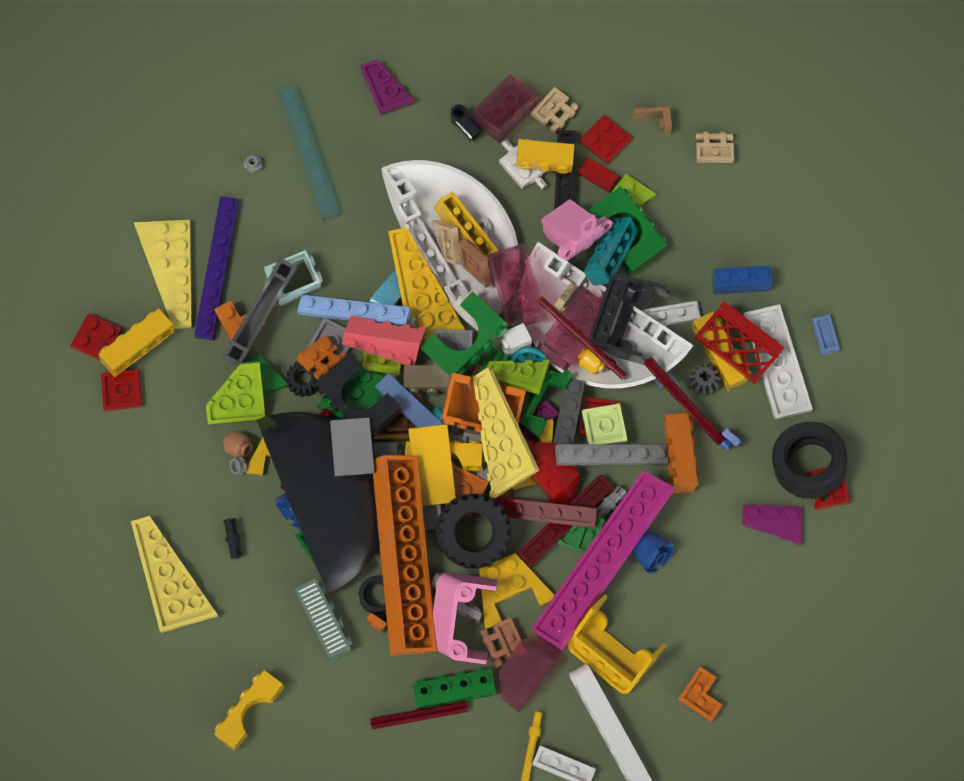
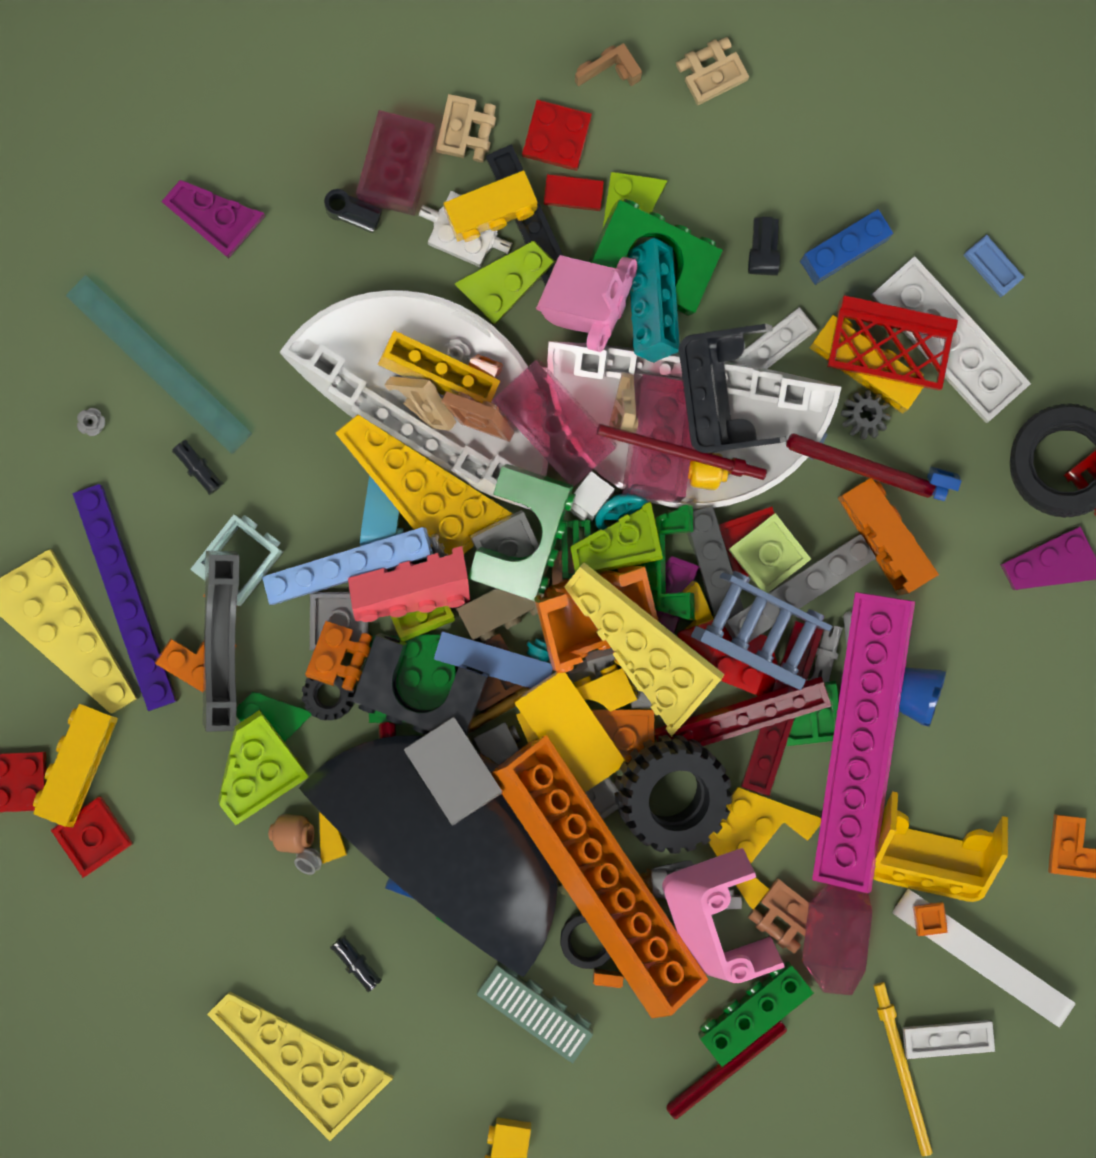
camera: 30 degrees left, 15 degrees up
(299, 217) = (197, 467): none -> black pin
(495, 240) = (486, 365): none -> tile
(532, 202) = (506, 281): none -> lime wing
(565, 476) = (738, 646): none -> sand blue fence
(589, 684) = (930, 919): none -> orange tile
(692, 259) = (764, 256): none -> black piece

